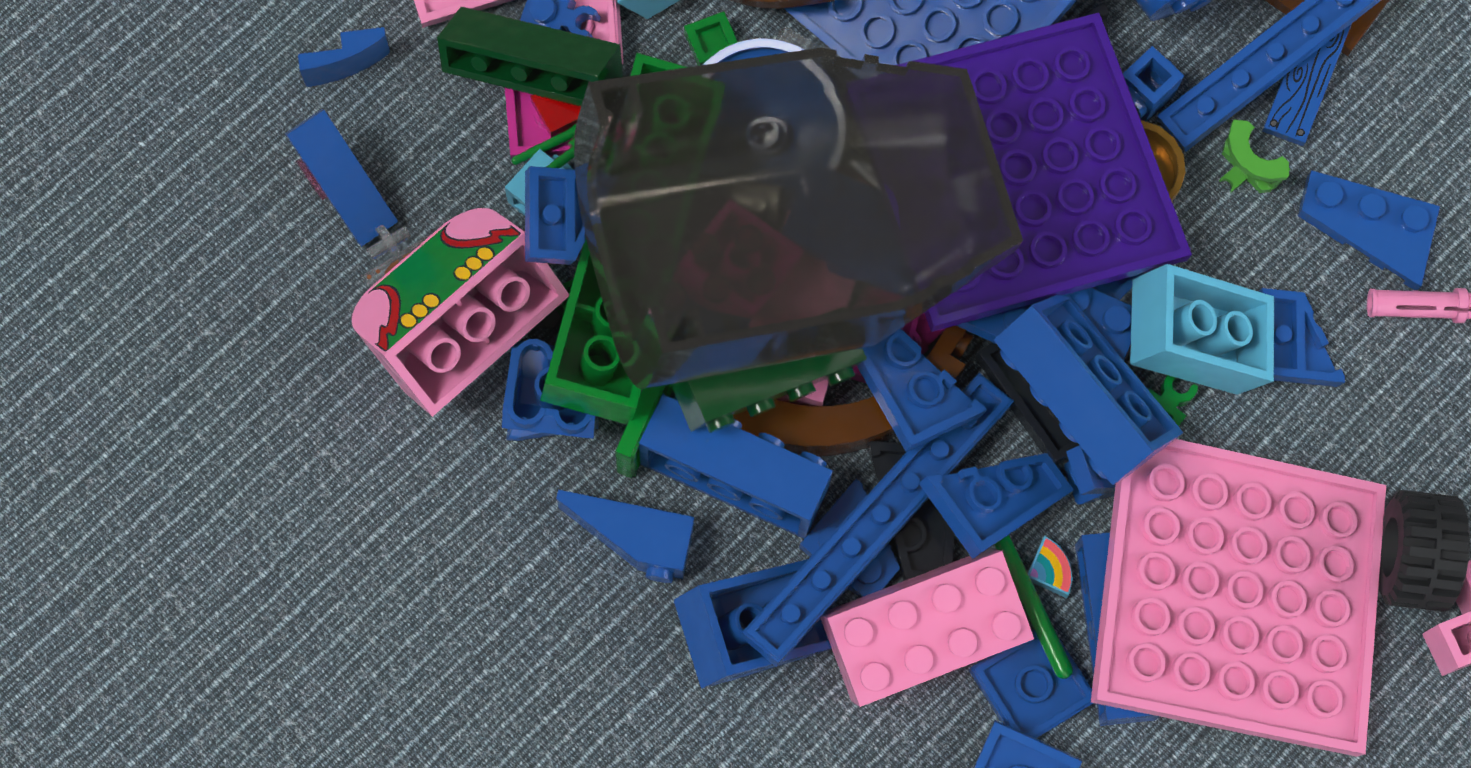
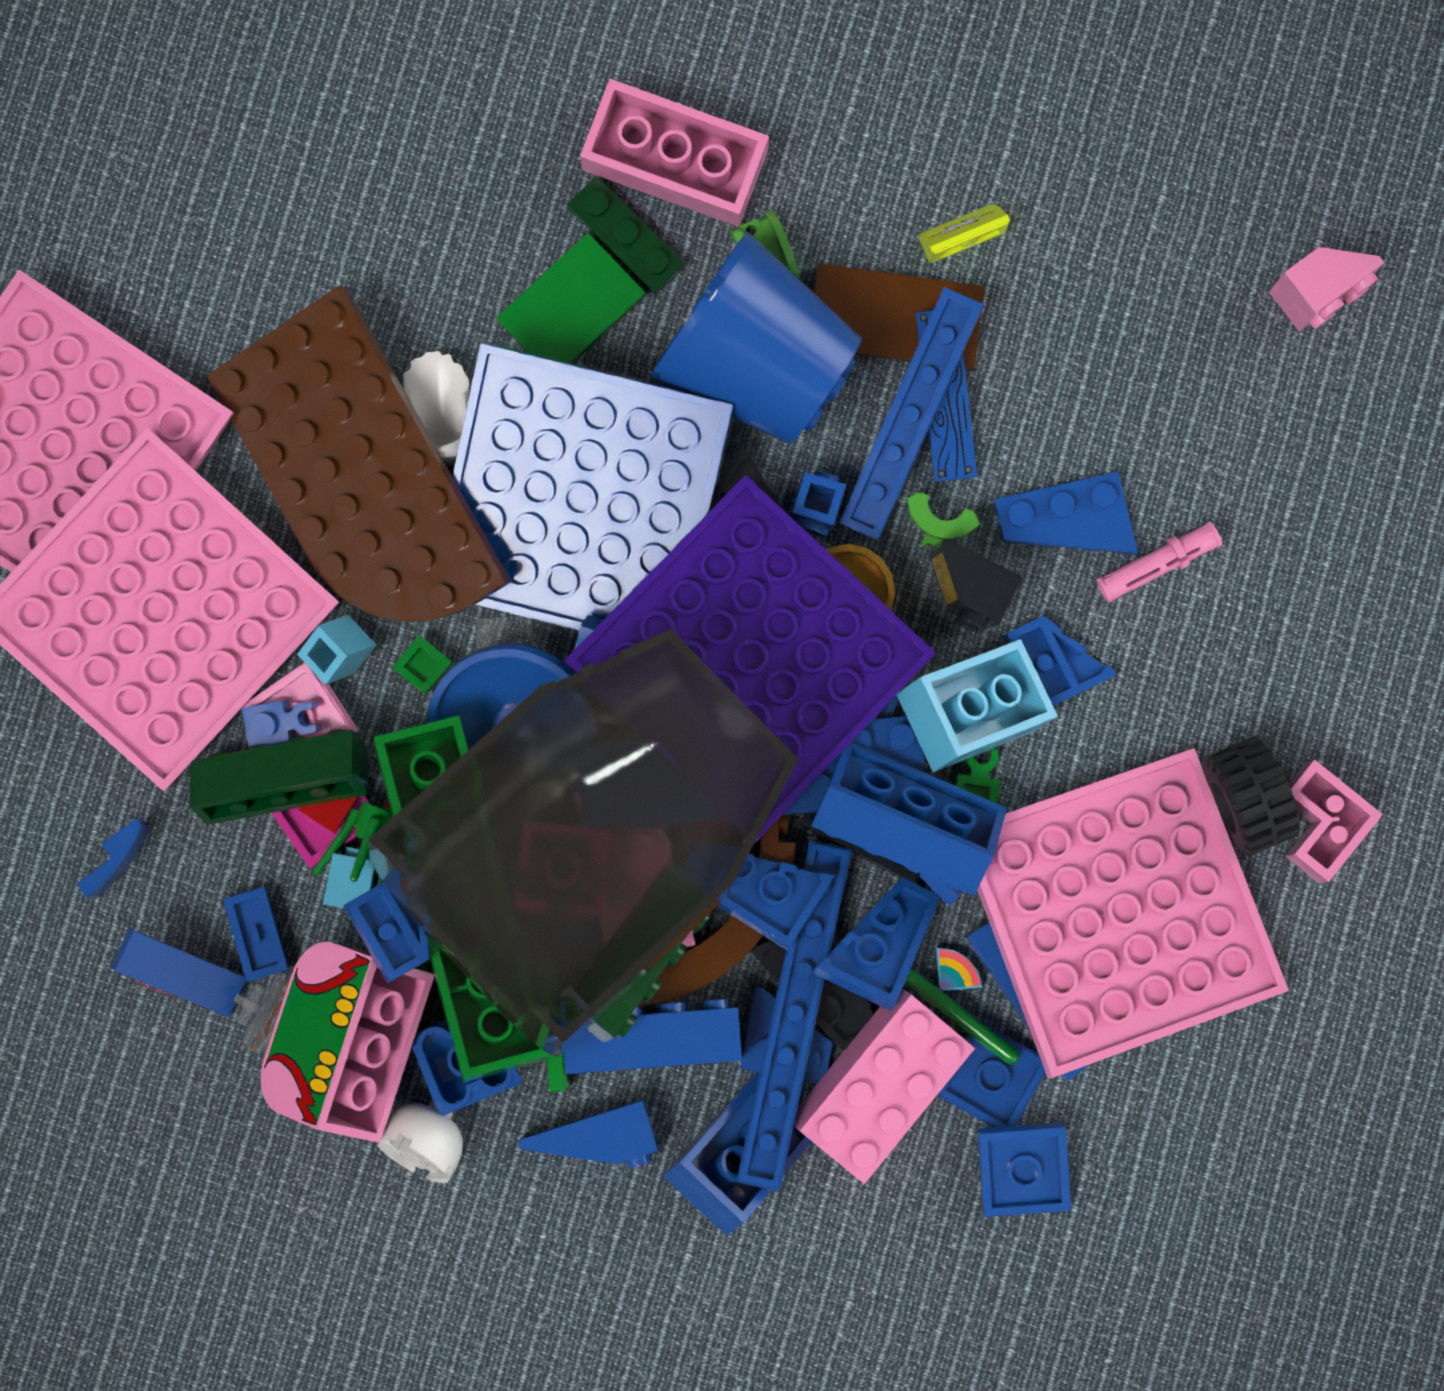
camera: 25 degrees left, 10 degrees up
(429, 187) = (256, 934): none -> blue plate
(470, 443) = (423, 1139): none -> white cylinder
(1254, 224) = (972, 585): none -> black slope

